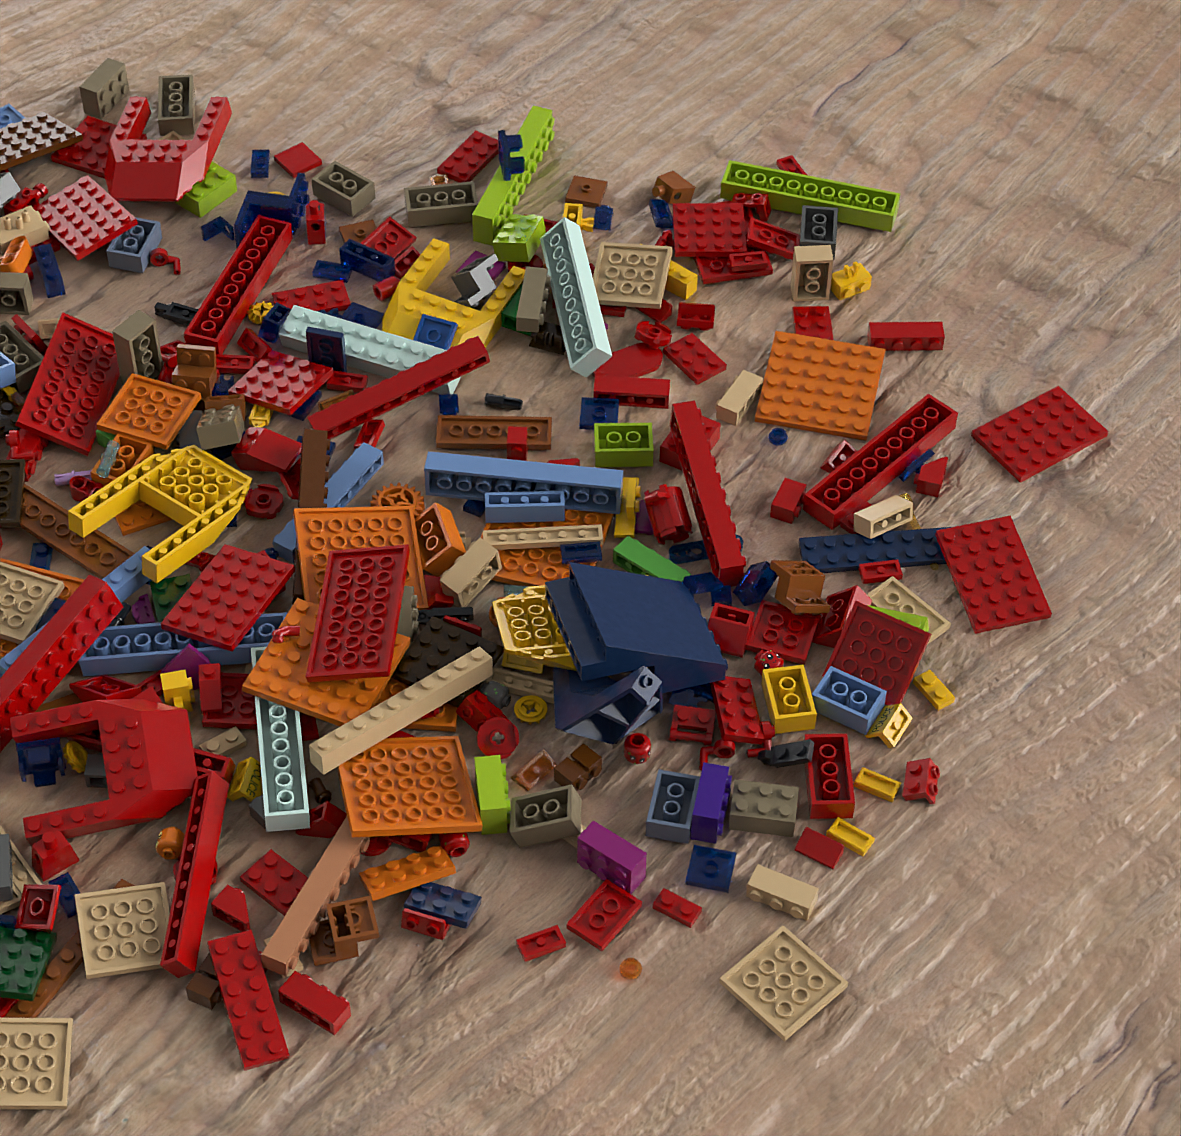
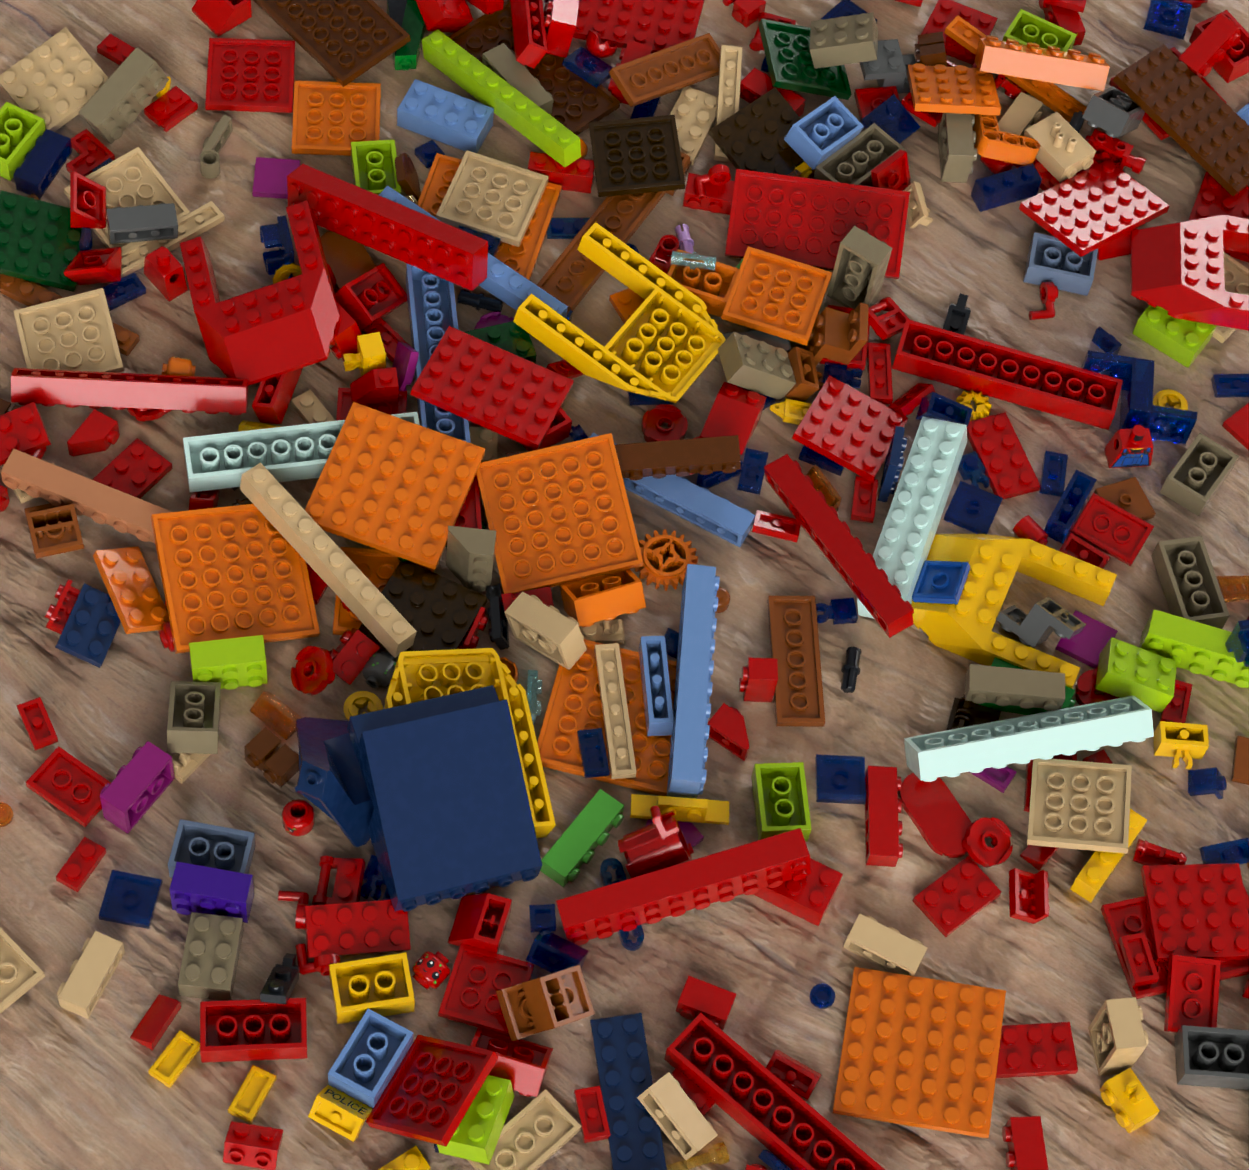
camera: 80 degrees right, 10 degrees up
(285, 631) = (425, 432): red arm -> none
(358, 614) = (449, 500): red plate -> none
(702, 583) = (544, 886): clear blue plate -> none

